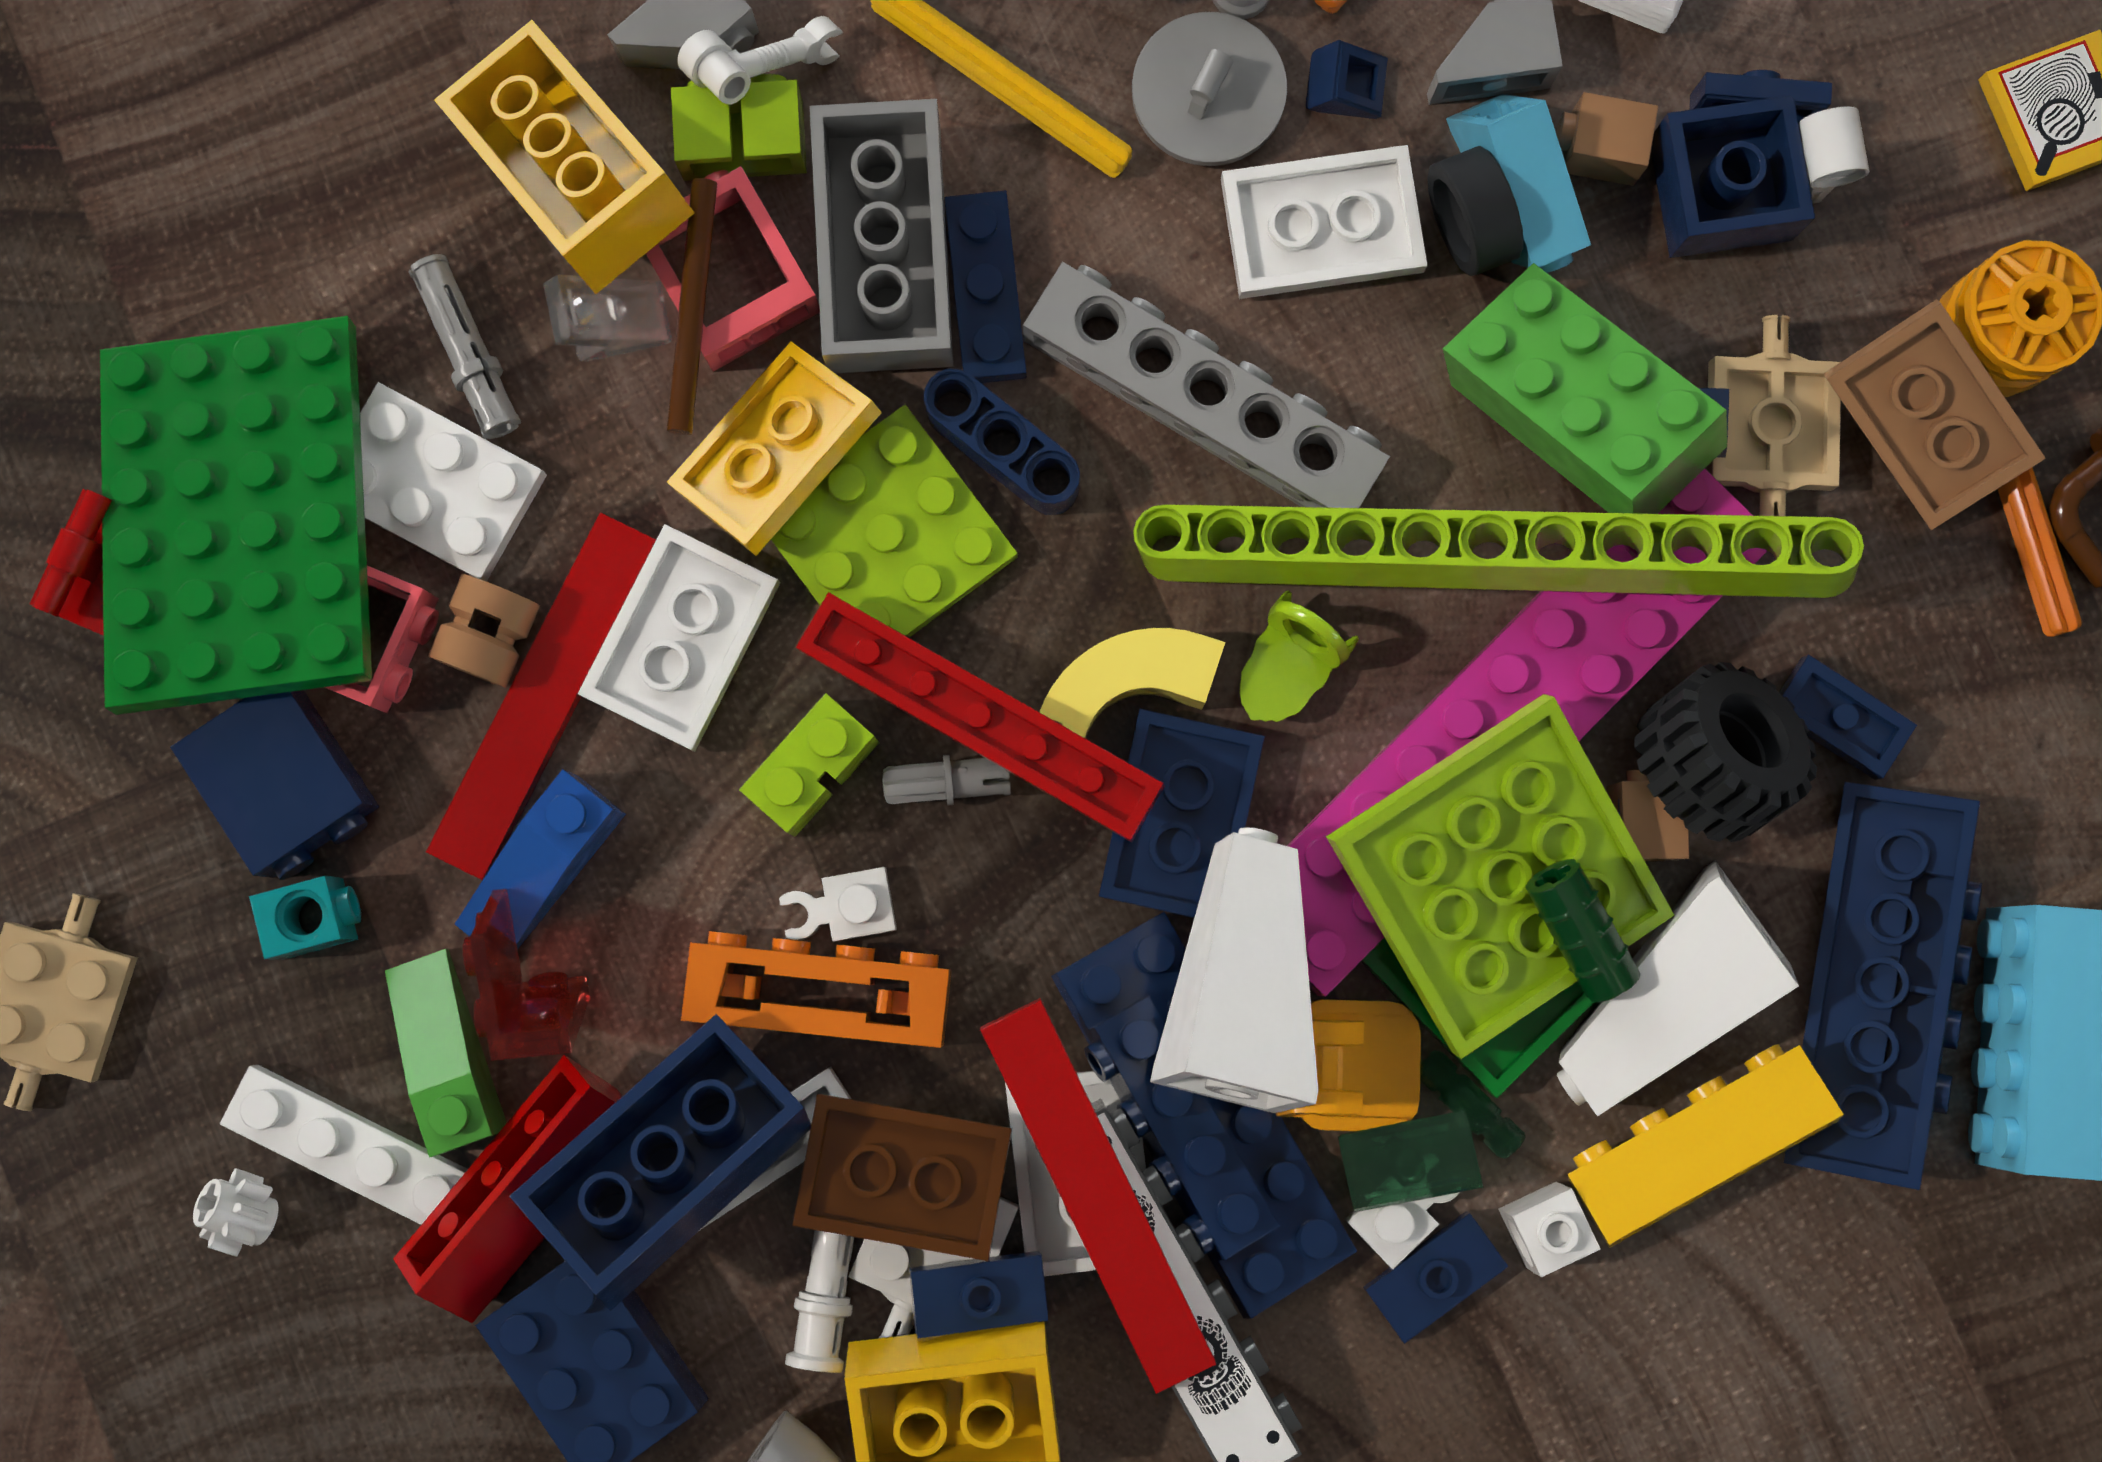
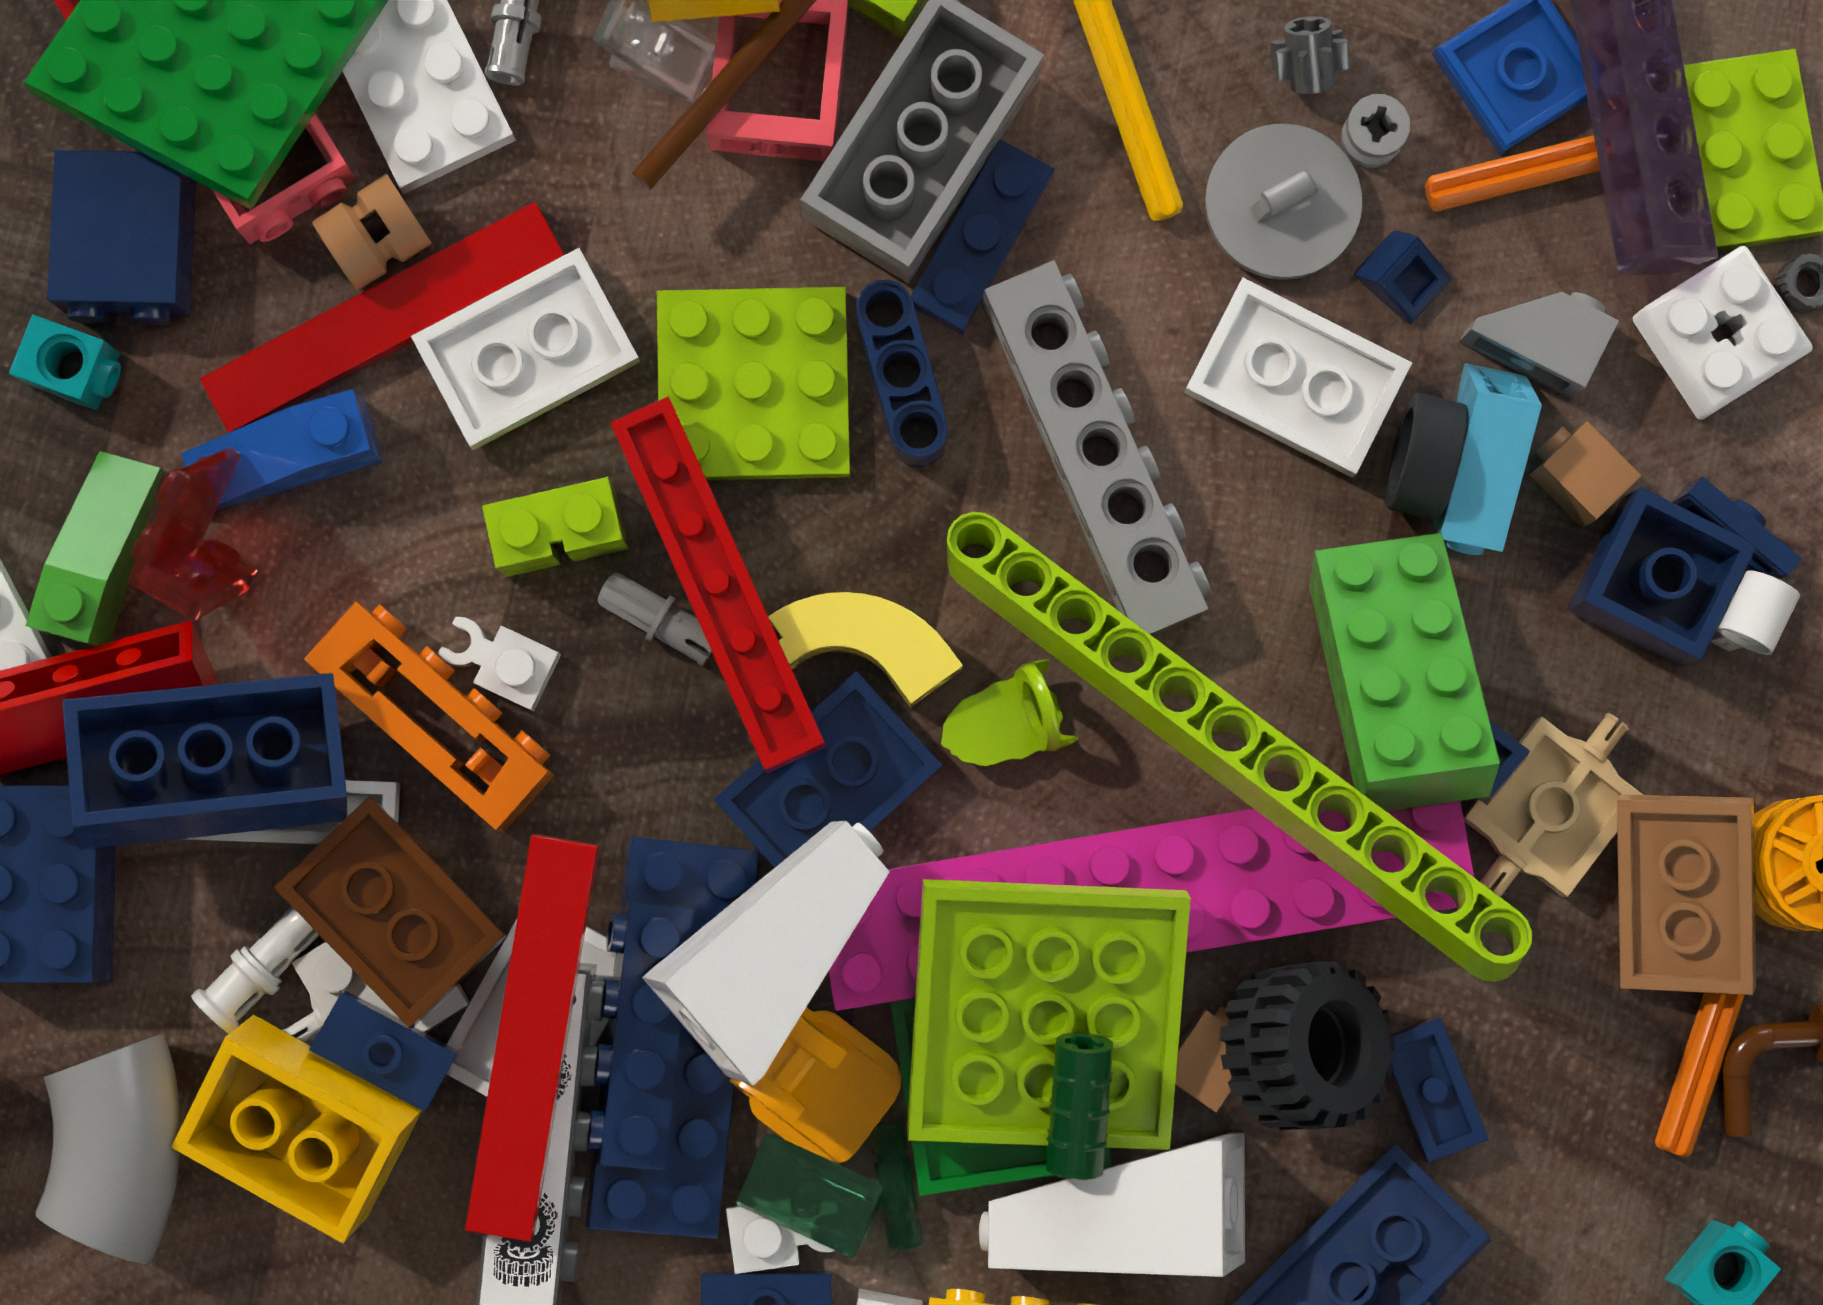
camera: 30 degrees right, 0 degrees up
(774, 447) = (711, 247): yellow plate -> none

